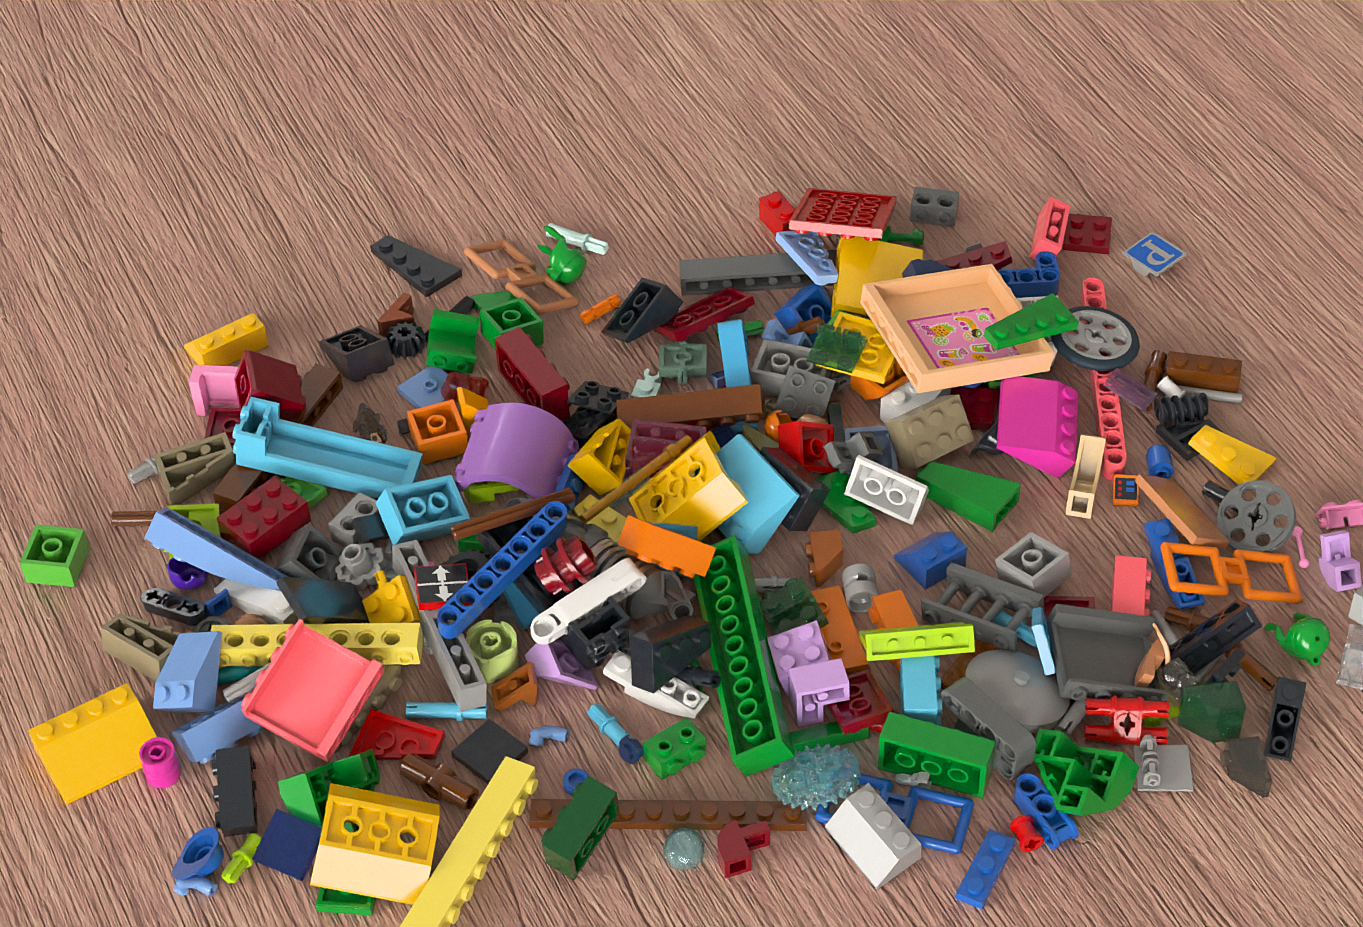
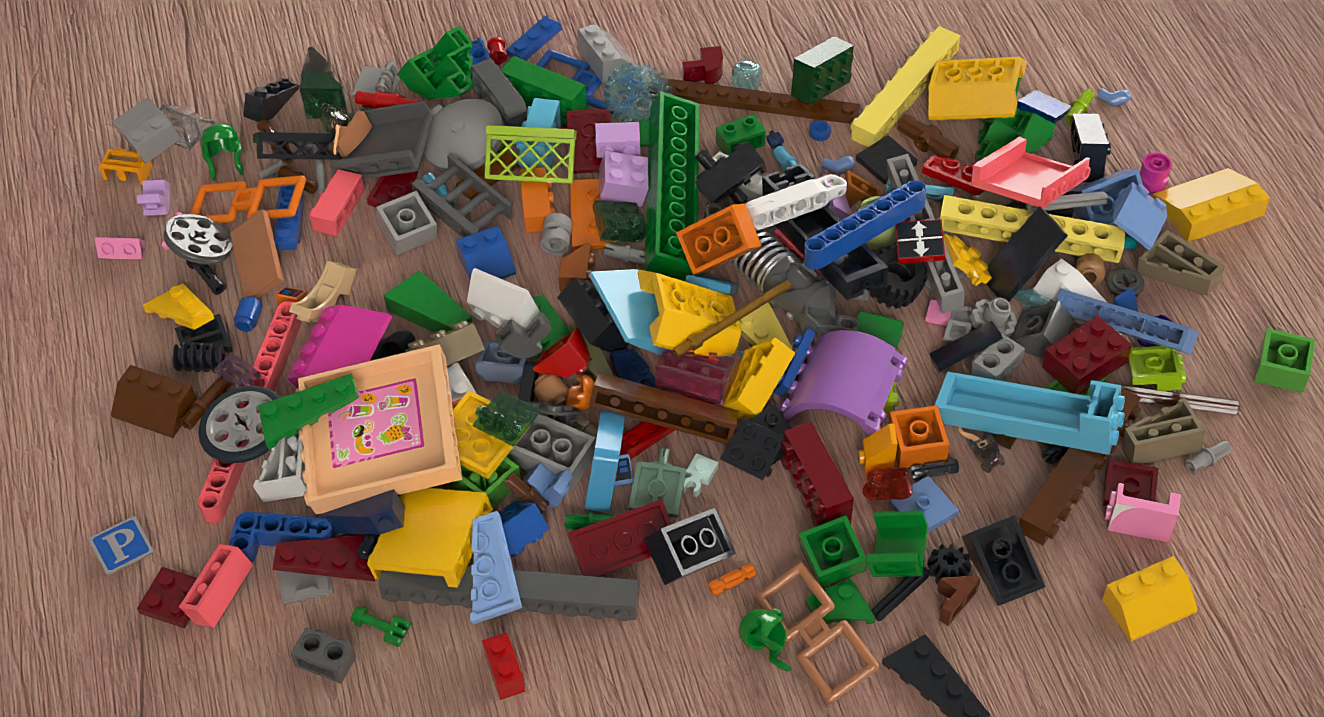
camera: 170 degrees left, 5 degrees up
(159, 600) = (1144, 301): black beam -> none
(200, 855) = (1114, 100): blue piece -> none
(271, 381) = (1092, 462): dark red slope -> none
(421, 509) = (936, 338): medium azure brick -> none
(509, 514) = (852, 265): reddish brown axle -> none
(569, 562) = (811, 207): dark red piece -> none
(584, 241) = (743, 682): light aqua axle -> none
(843, 213) = (435, 622): red plate -> none
(1042, 639) = (427, 151): tile -> none
(1169, 388) = (195, 379): white pin -> none
(1228, 667) = (303, 111): black wing -> none

